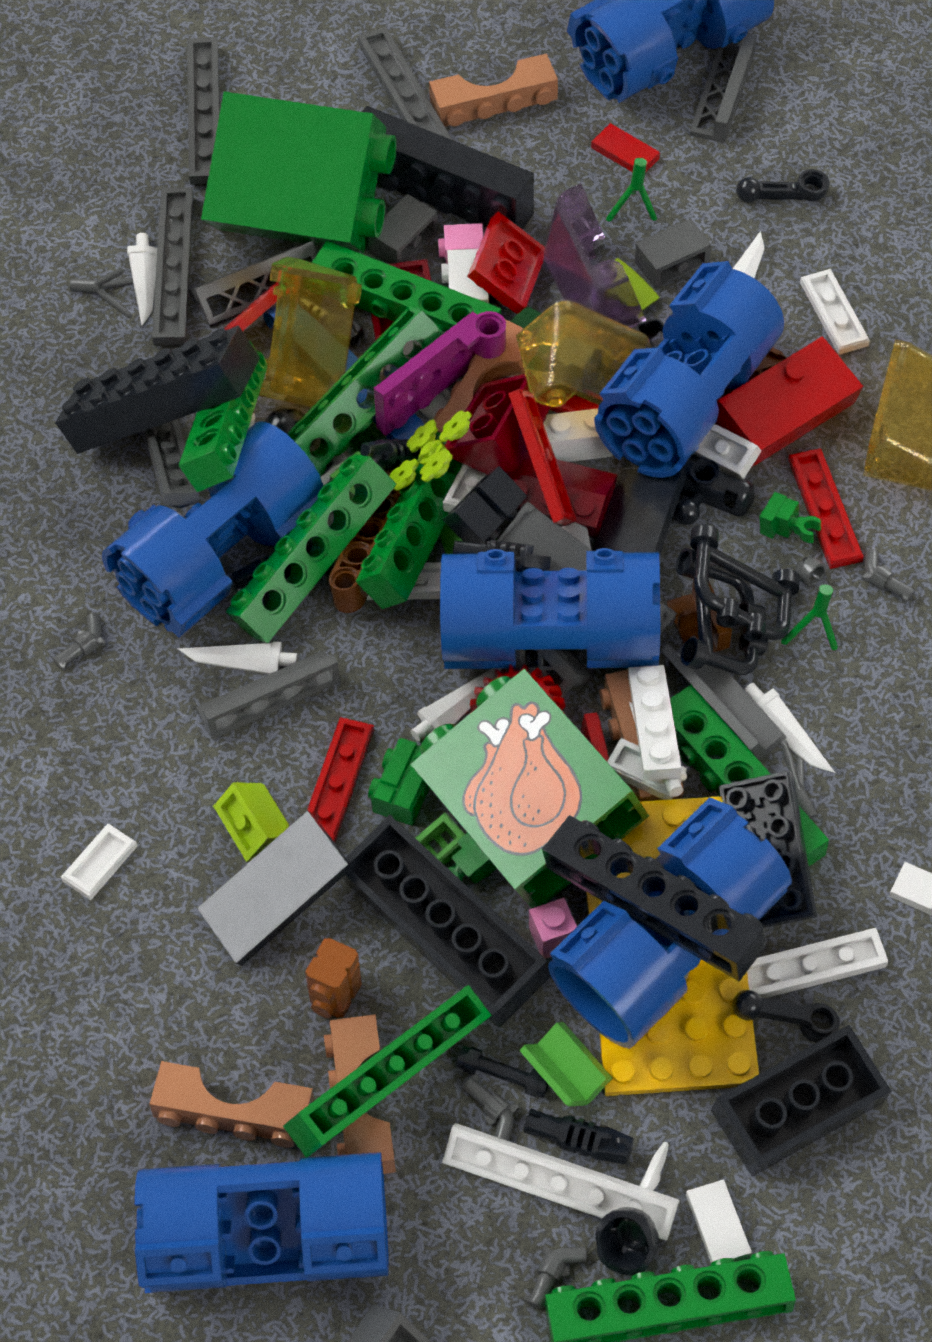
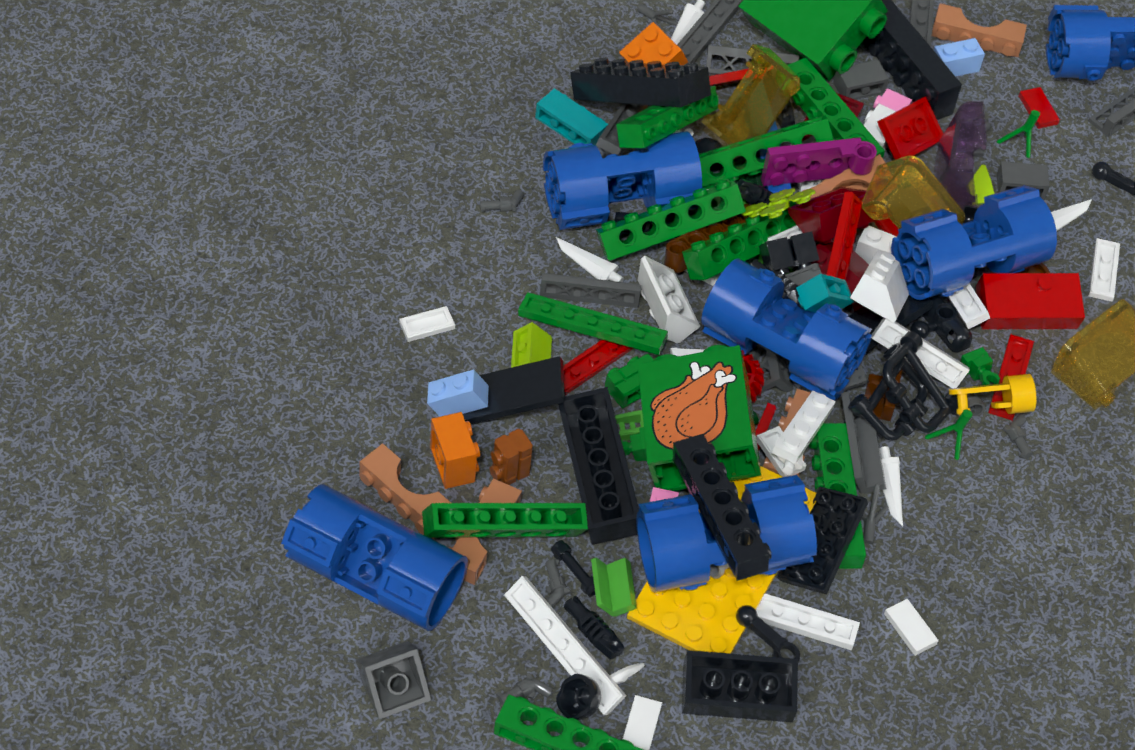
camera: 25 degrees right, 5 degrees down
(93, 483) = (569, 118): none -> teal brick
(135, 333) = (651, 46): none -> orange brick
(209, 936) = (458, 393): none -> light blue brick
(256, 1013) = (454, 450): none -> orange brick
(305, 737) = (593, 323): none -> green plate
(375, 655) = (666, 300): none -> white slope
(499, 133) = (961, 56): none -> light blue brick
(569, 539) = (824, 290): none -> teal brick
(621, 488) = (882, 286): none -> white slope
(741, 542) = (934, 360): none -> white plate
(854, 526) = (1017, 390): none -> yellow piece

